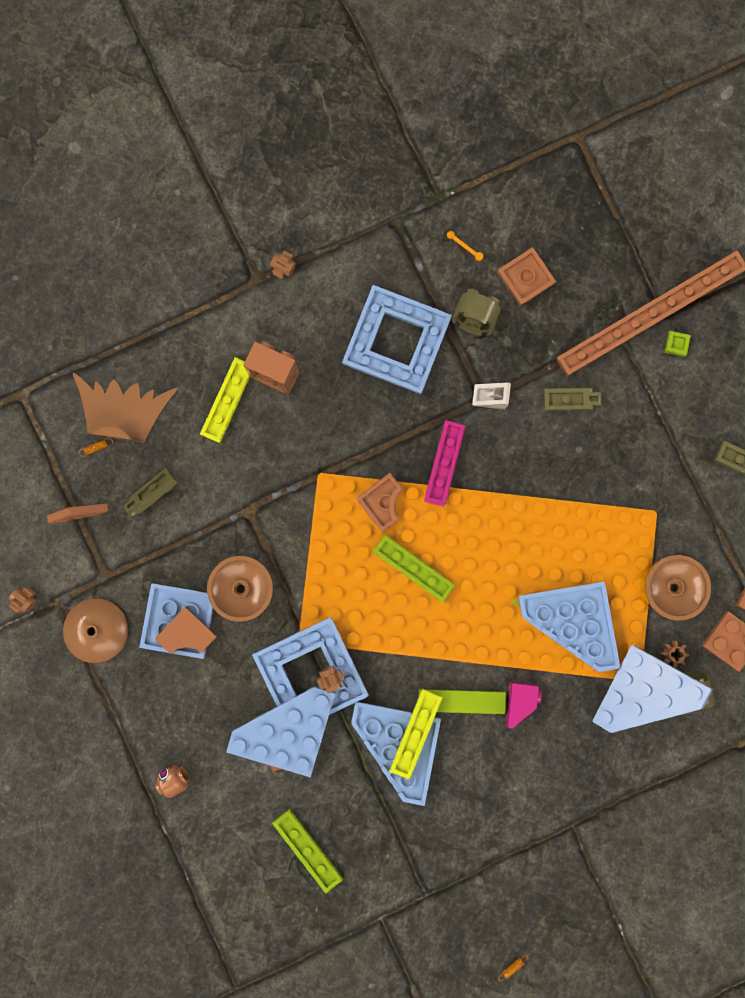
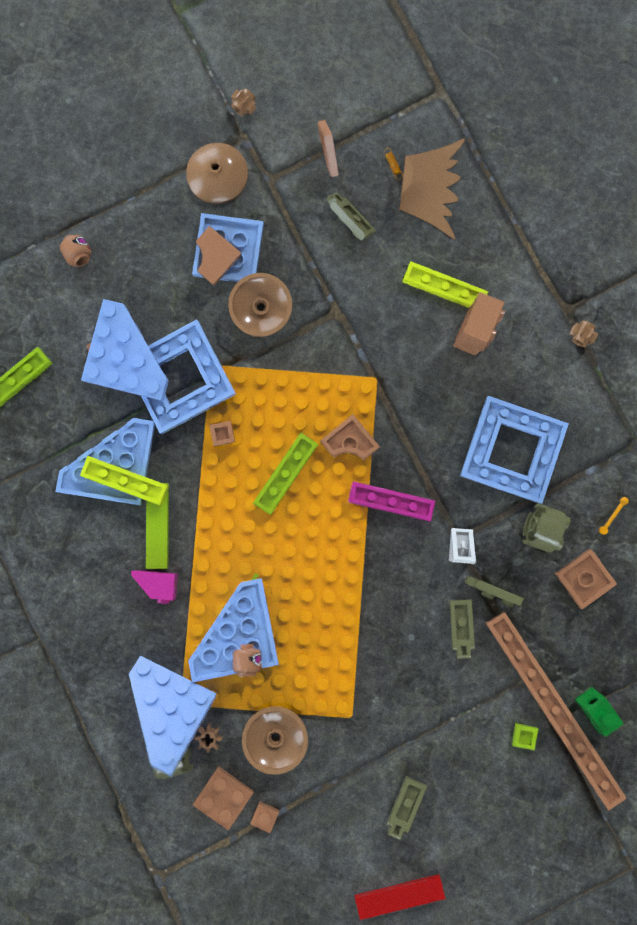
camera: 90 degrees right, 0 degrees up
(330, 679) = (174, 394): medium nougat gear -> none
(371, 631) = (222, 433): none -> nougat plate
(536, 371) = (490, 591): none -> olive hinge
(601, 612) = (247, 660): none -> nougat head
(657, 270) = (600, 713): none -> green torso

